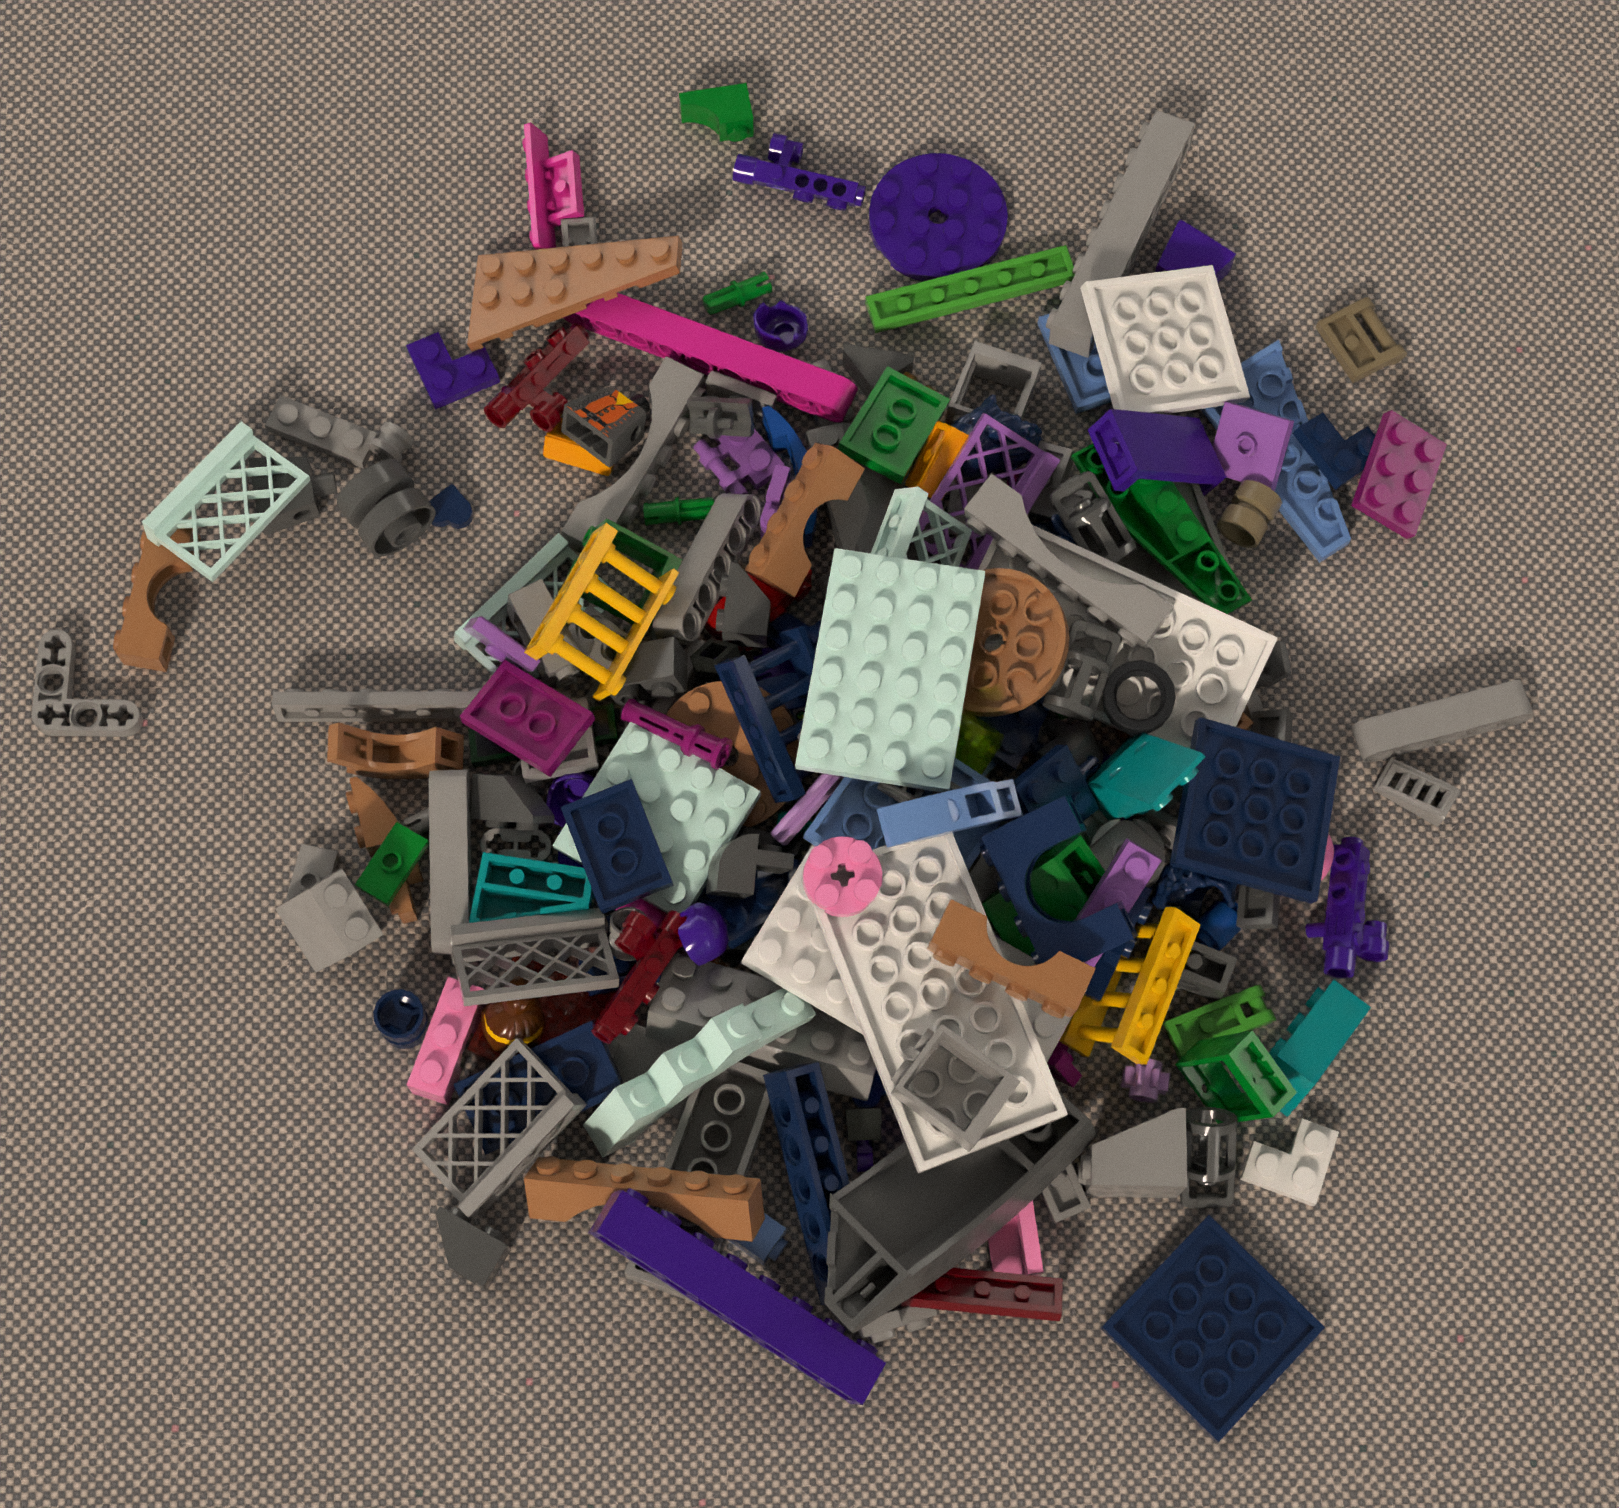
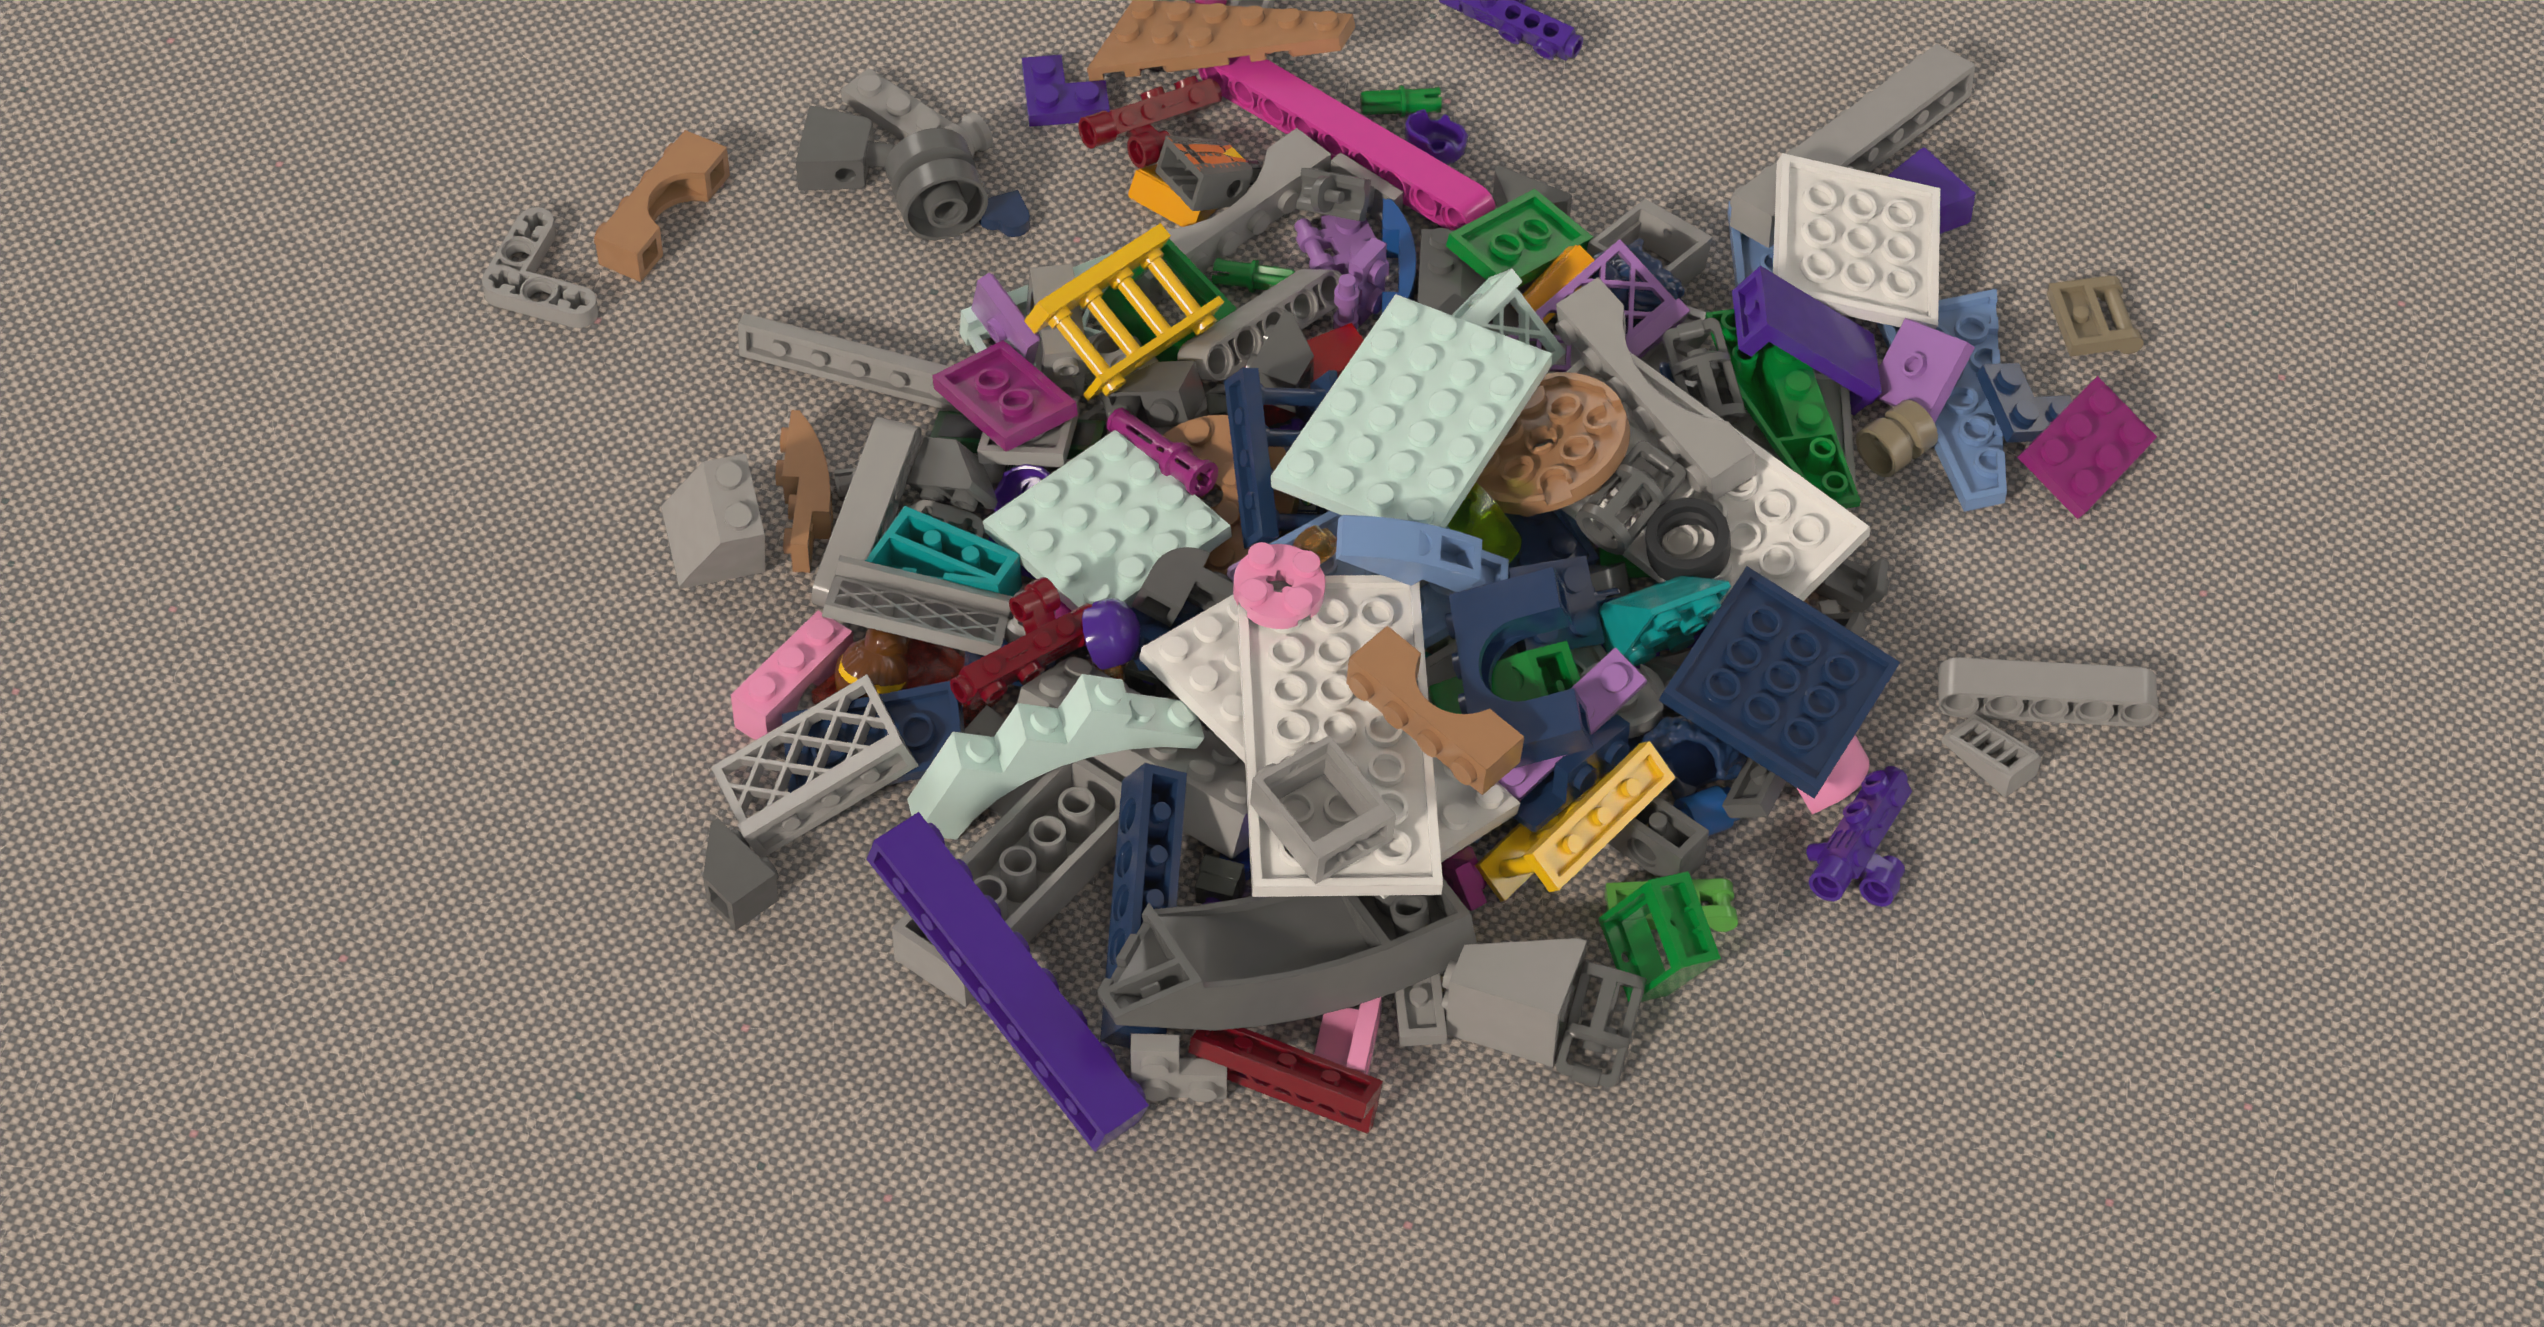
camera: 20 degrees right, 20 degrees down
(198, 489) = (756, 110): light aqua fence -> none
(392, 864) = (803, 493): green plate -> none
(394, 755) = (840, 407): medium nougat arch -> none
(401, 1019) = (749, 638): dark blue wheel -> none
(617, 846) = (1051, 526): dark blue plate -> none
(717, 1203) = (1019, 878): medium nougat arch -> none
(767, 1242) = (1059, 949): medium blue brick -> none
(781, 555) = (1343, 321): medium nougat arch -> none
(855, 820) = (1317, 540): none -> clear orange tile
(932, 183) = (1688, 110): dark purple plate -> none
(970, 289) = (1656, 159): bright green plate -> none
(1145, 1081) = (1560, 923): lavender gear -> none
(1212, 1328) = (1541, 1195): dark blue plate -> none
(1297, 1173) = (1704, 1079): white plate -> none
(1317, 1038) = (1764, 948): teal wedge -> none

